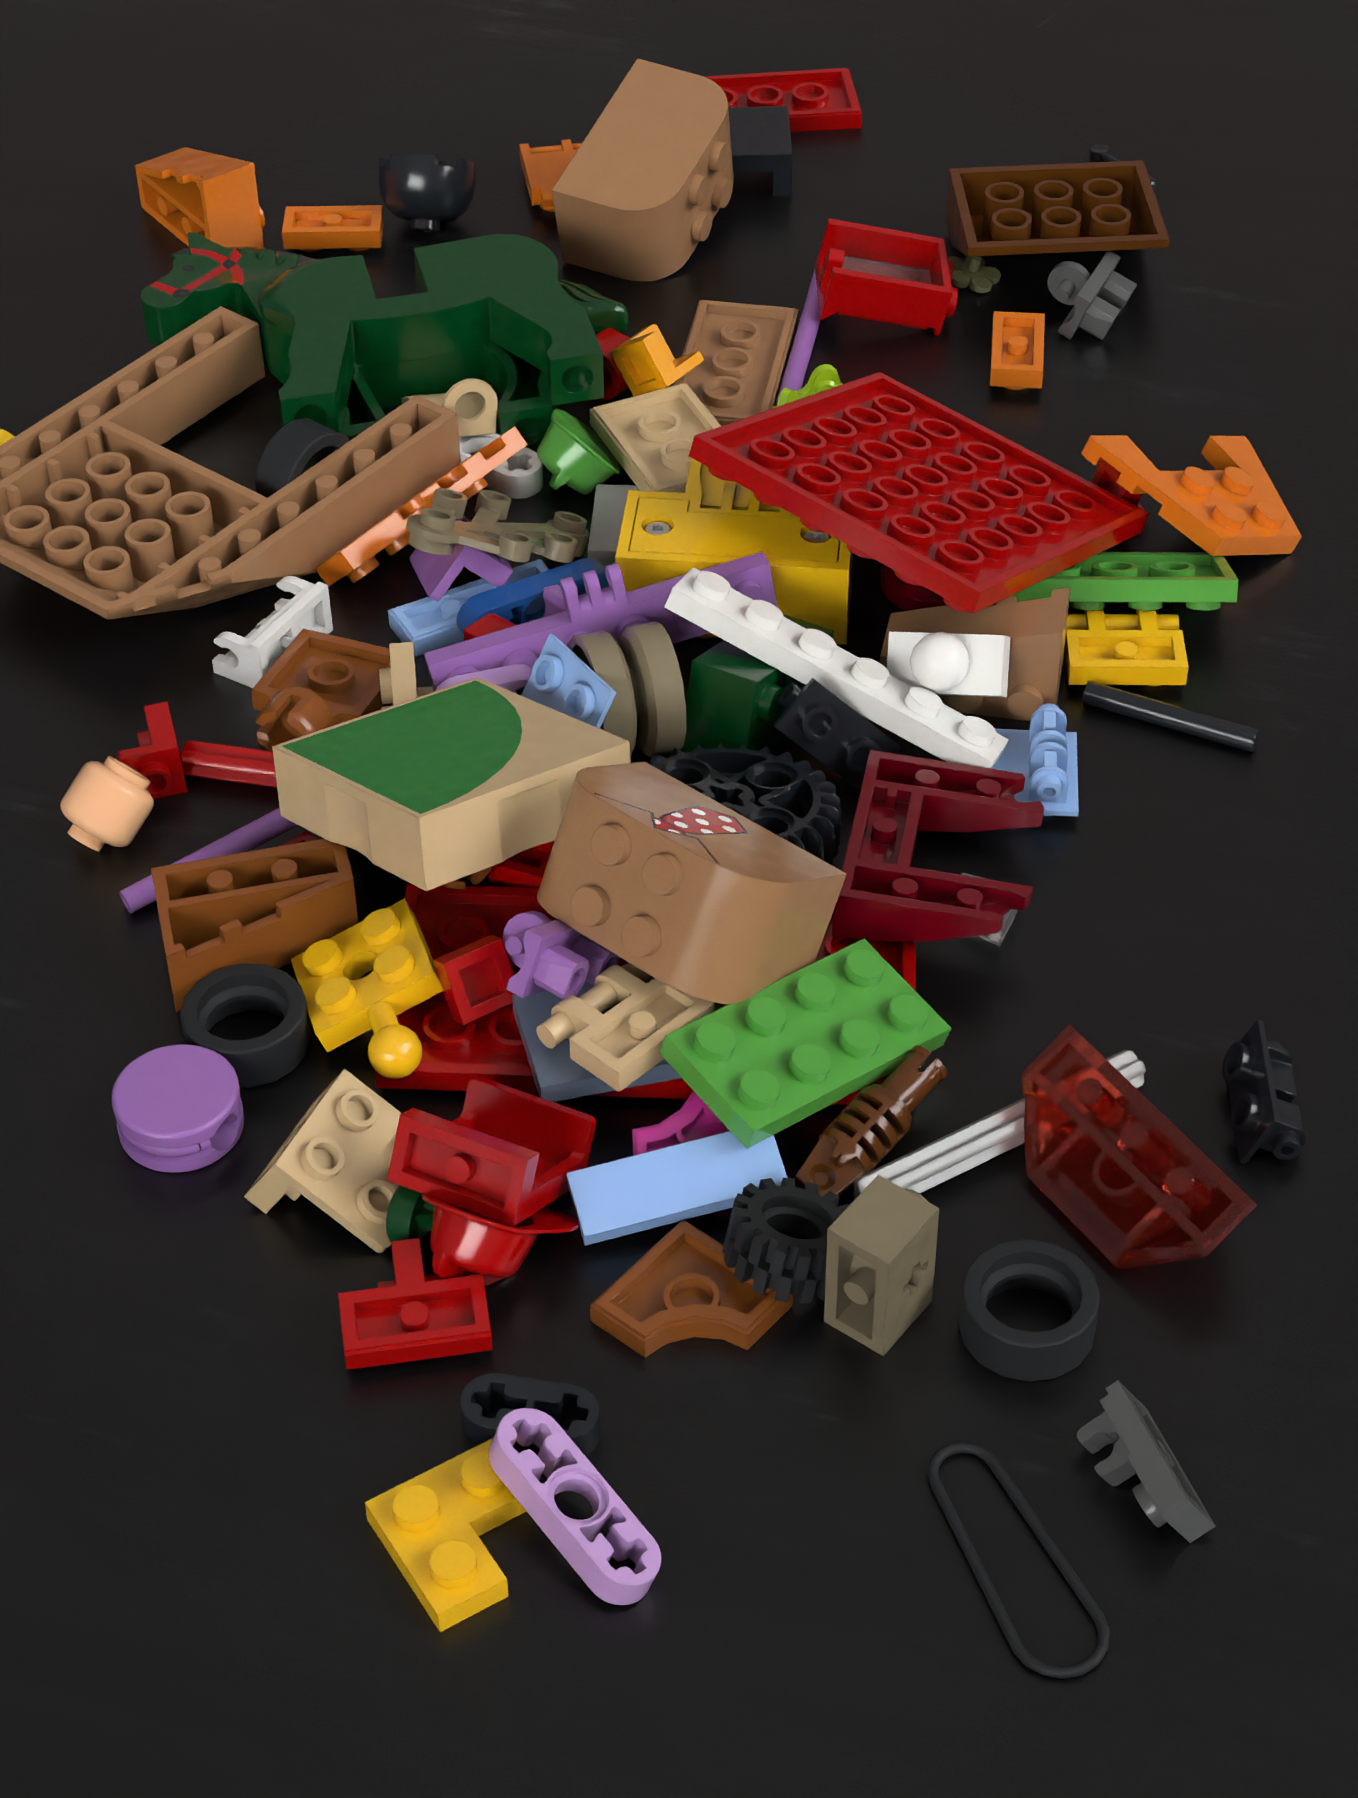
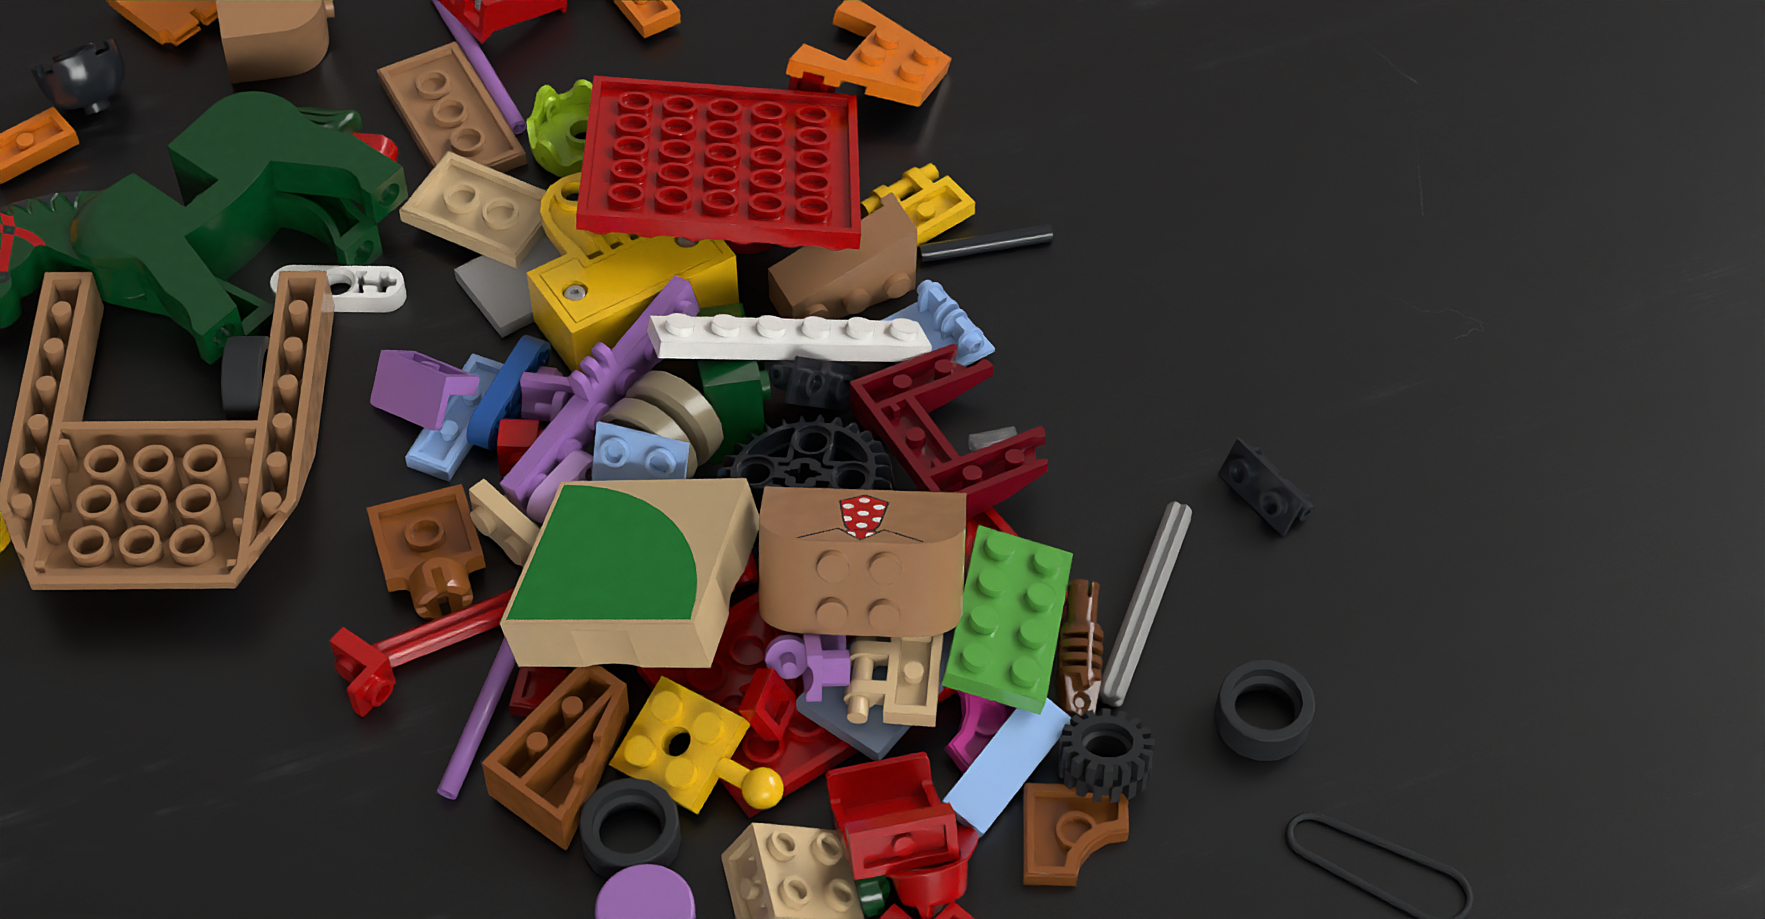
camera: 40 degrees left, 10 degrees up
(107, 804) = (372, 730): light nougat head -> none
(256, 652) = (342, 523): white hinge -> none
(391, 532) = (353, 358): orange wing -> none
(438, 532) = (422, 380): dark tan plant -> none
(474, 404) = (296, 254): tan piece -> none
(575, 454) = (421, 255): bright green piece -> none
(649, 363) = (411, 147): light orange panel -> none
(880, 1264) = (1182, 738): dark tan brick -> none
(951, 662) = (850, 289): white tile -> none
(1121, 1162) = (1244, 582): clear red wedge -> none
(1141, 1449) = (1428, 772): dark grey plate -> none
(1143, 581) = (905, 142): bright green plate -> none

